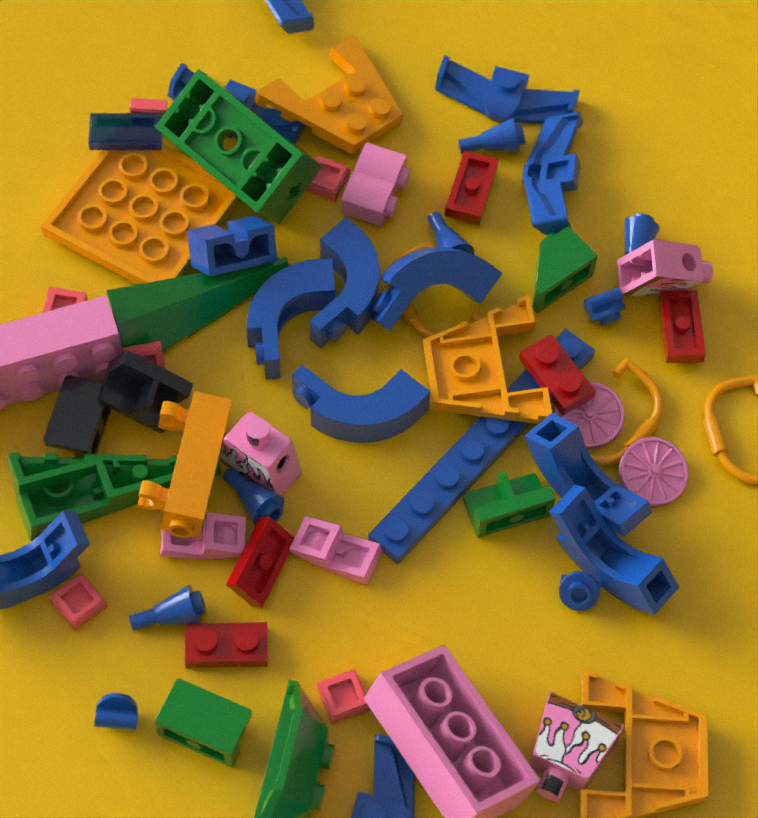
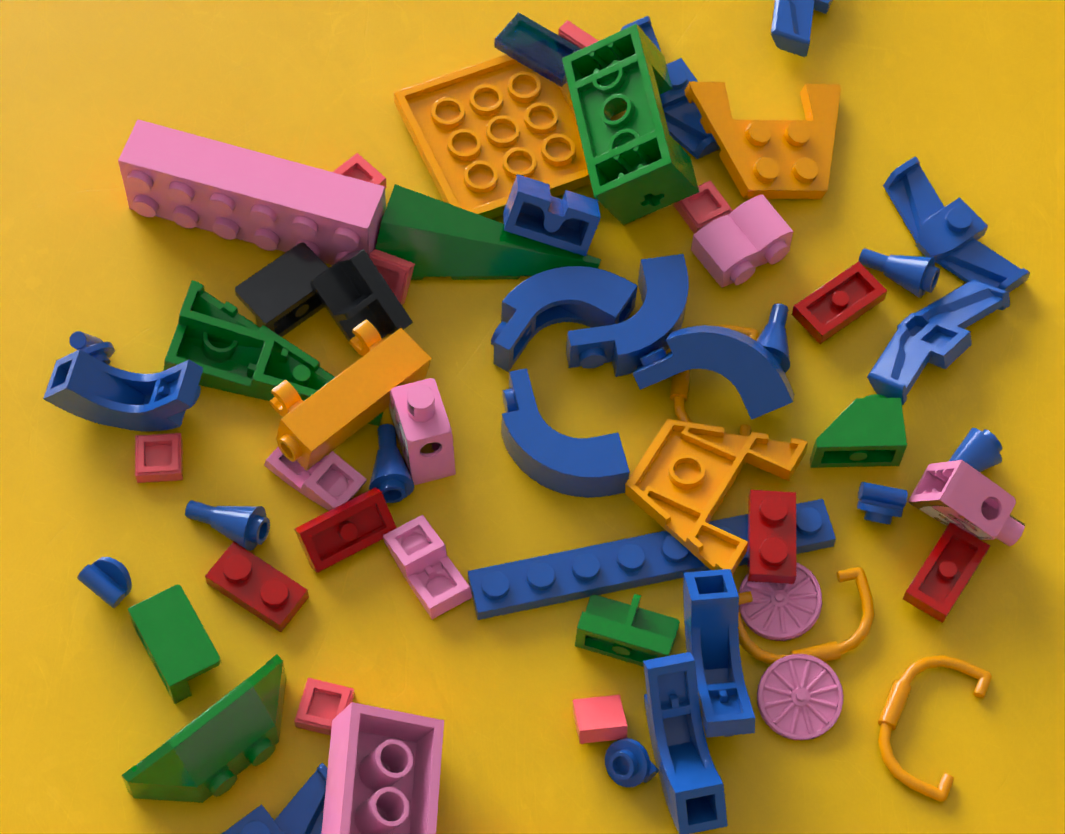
camera: 35 degrees right, 0 degrees up
(538, 574) = (599, 719): none -> coral tile

